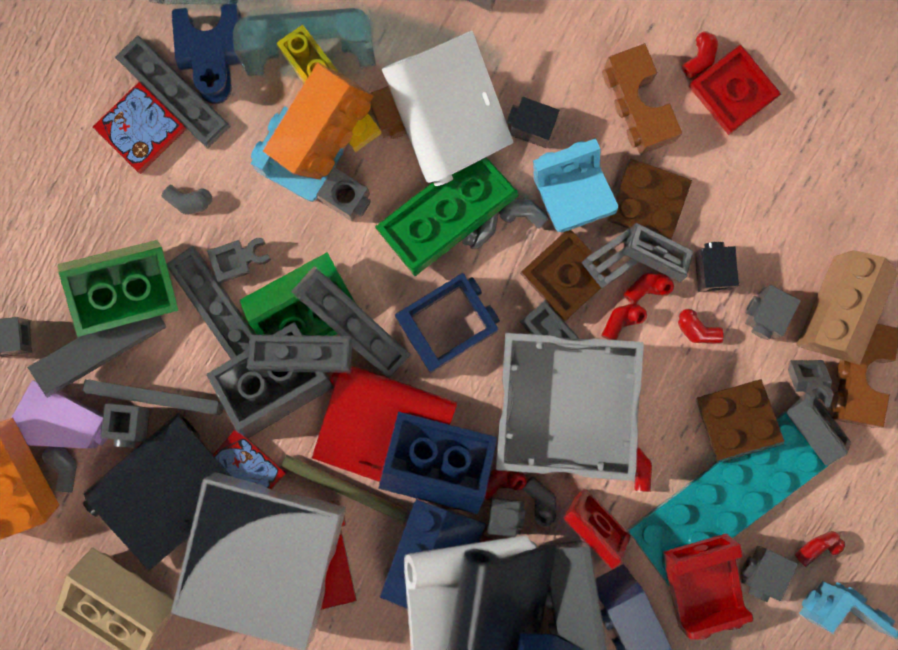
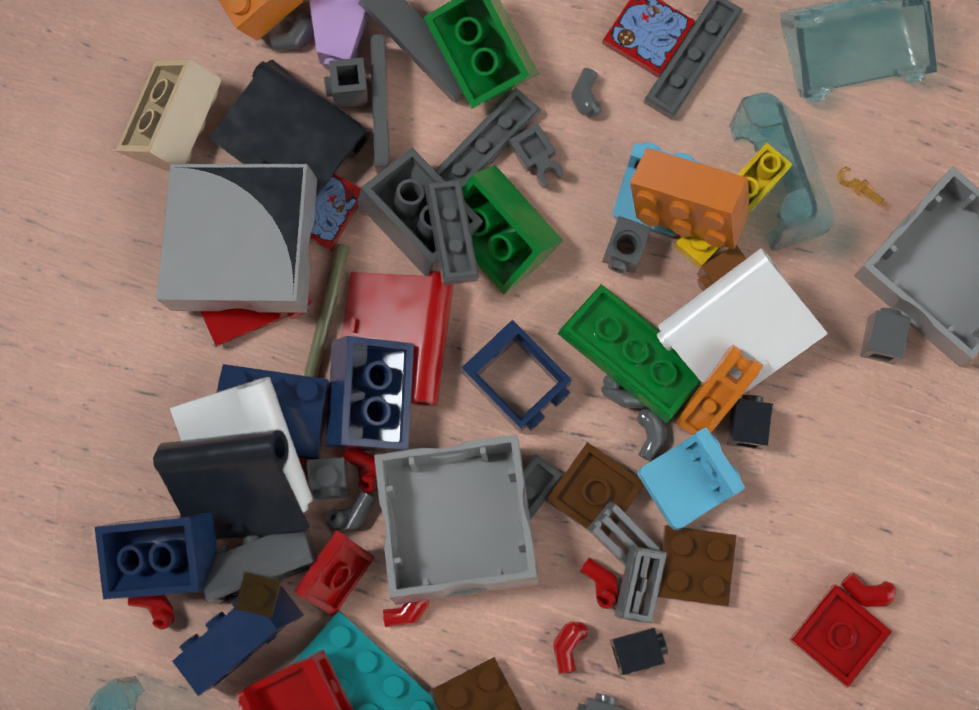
camera: 80 degrees right, 5 degrees down
(207, 51) = (741, 76): dark blue piece -> none
(350, 320) = (495, 277): dark grey tile -> none
(502, 142) = (718, 392): none -> orange plate
(610, 603) = (258, 594): none -> dark brown plate
(623, 317) = (563, 561): red arm -> none
(647, 125) = (775, 548): dark orange arch -> none

